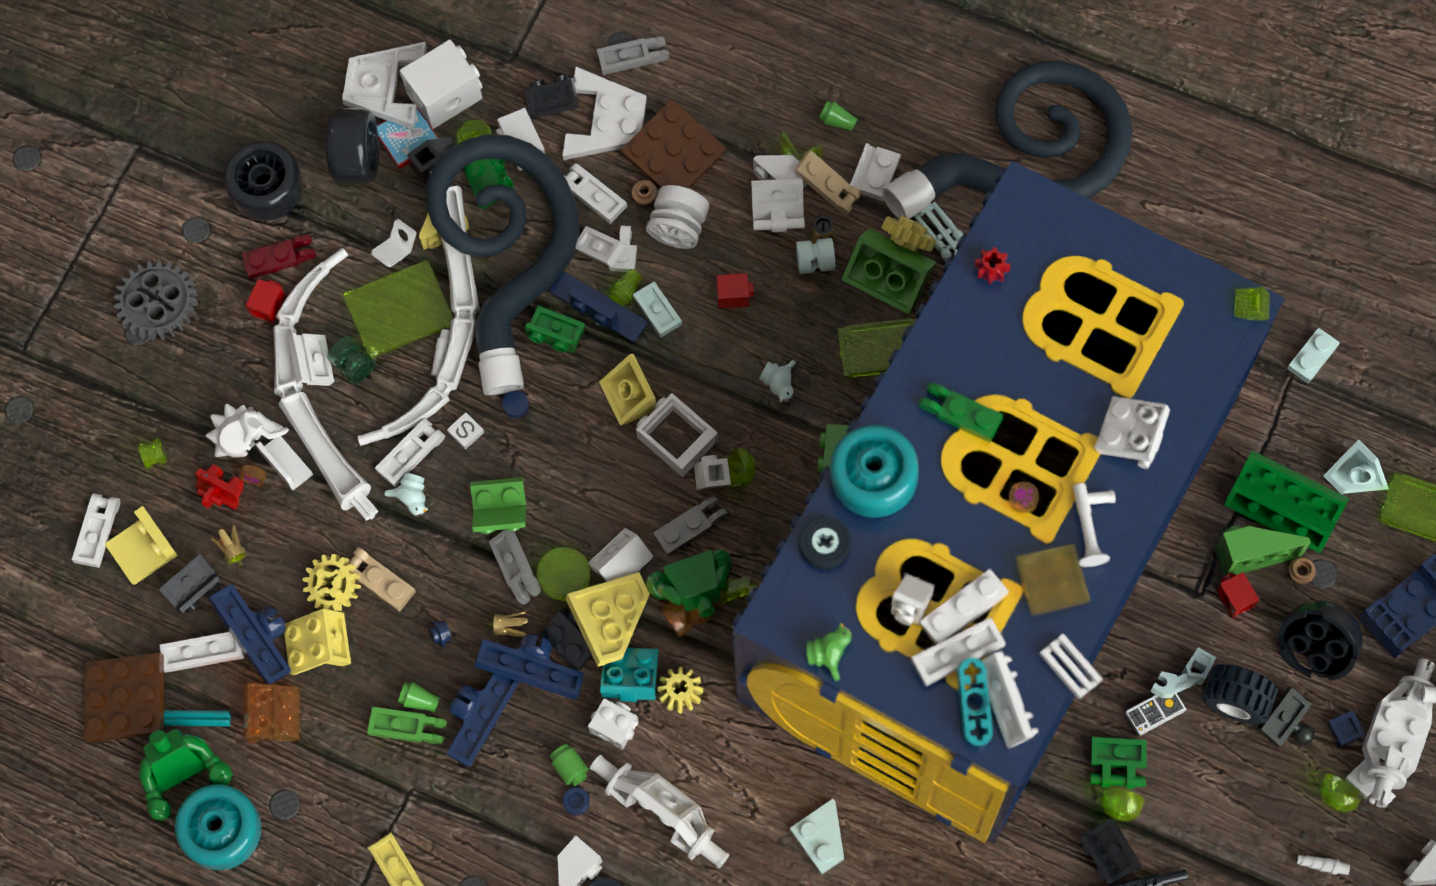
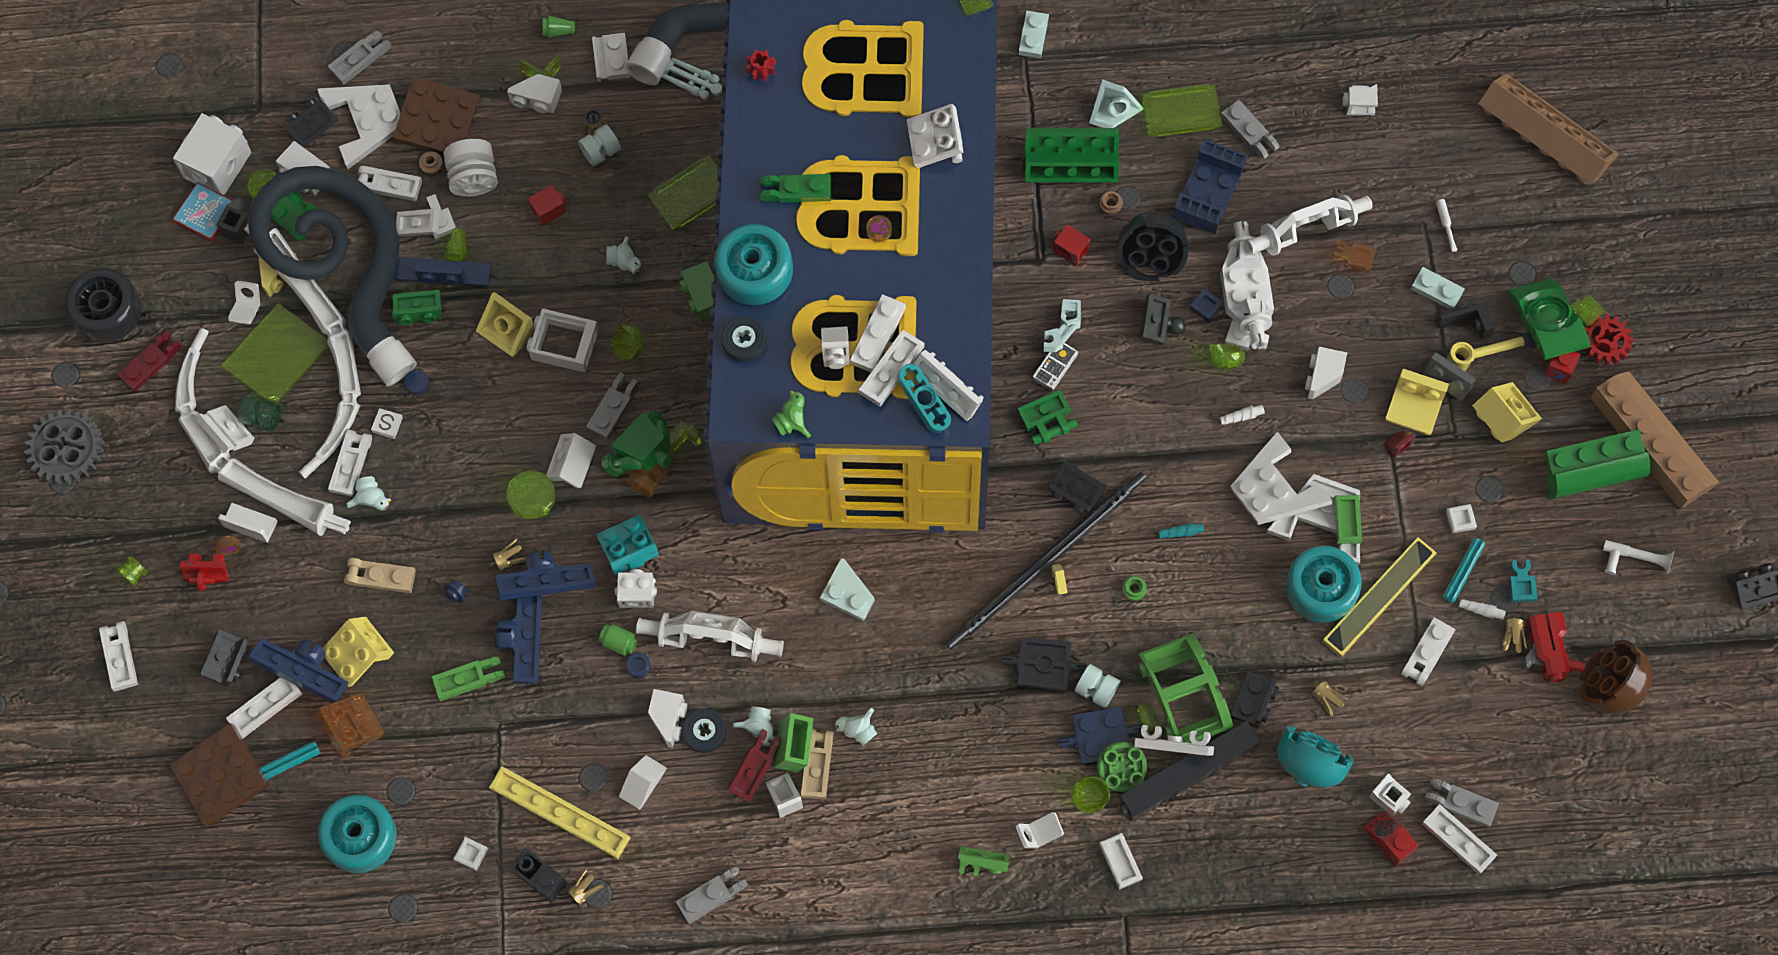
camera: 30 degrees left, 0 degrees up
(141, 548) = (165, 649): light yellow bracket -> none
(172, 760) = (290, 800): green torso -> none
(232, 550) = (244, 612): pearl gold piece -> none
(239, 429) = (196, 514): white head -> none
(266, 300) = (159, 401): red brick -> none
(320, 582) = (348, 589): light yellow gear -> none
(352, 146) = (165, 239): black wheel -> none
(373, 82) = (152, 183): white wing -> none
(418, 698) = (465, 650): bright green cone -> none
(440, 352) = (331, 370): white animal -> none
(498, 505) = (447, 466): bright green bracket -> none
(514, 566) = (486, 507): light grey hinge -> none
(567, 639) = (566, 540): black bracket -> none
(609, 615) = (586, 506): light yellow plate -> none
(657, 309) = (493, 250): light aqua plate -> none
(677, 681) = (667, 533): light yellow gear -> none
(711, 472) = (608, 355): white brick -> none
(777, 204) = (547, 118): white plate -> none
(827, 182) = (577, 82): tan plate -> none
(888, 270) = (664, 129): bright green slope -> none
(908, 234) = (665, 91): light yellow gear -> none
(1052, 579) = (934, 279): clear yellow plate -> none
(1078, 658) = (981, 336): white tile -> none
(1083, 500) = (955, 245): white piece -> none
(1122, 804) = (1067, 446): clear neon green hair -> none
(1239, 693) = (1113, 317): black wheel -> none
(1257, 548) = (1068, 201): bright green slope -> none

